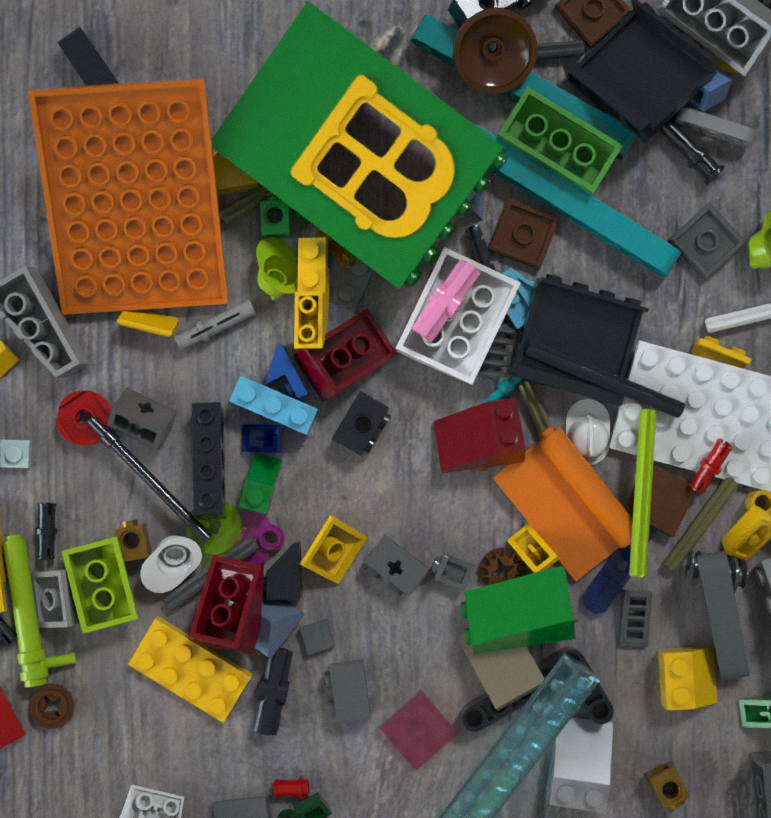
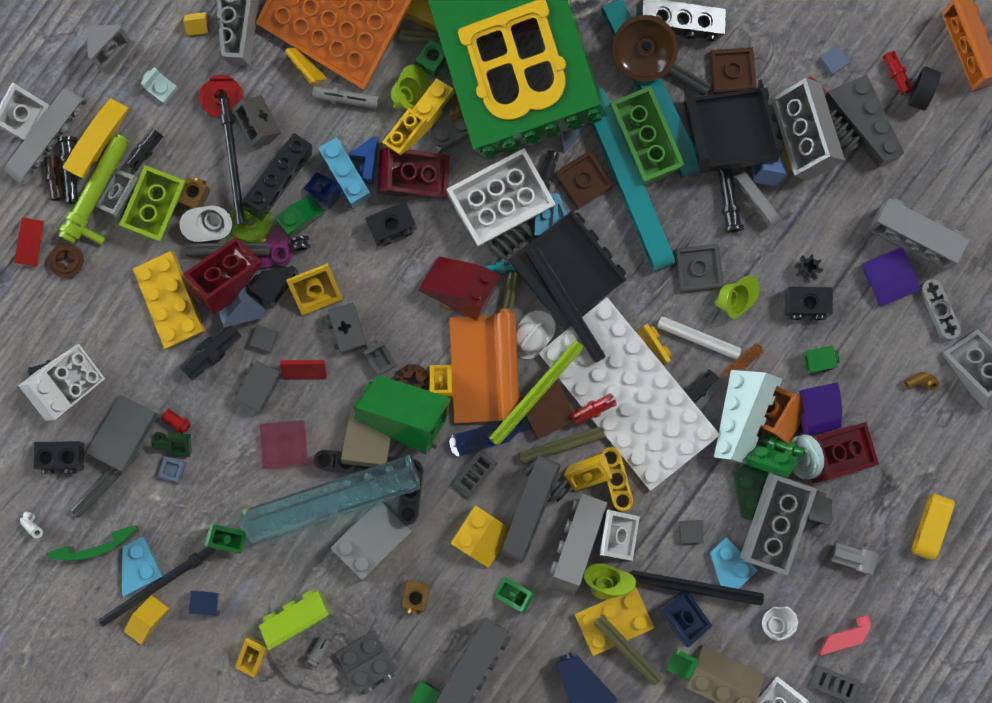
camera: 40 degrees right, 5 degrees down
(281, 512) = (300, 243): none -> black bush
(382, 639) = (303, 369): none -> red slope
(446, 300) = (499, 180): bright pink piece -> none

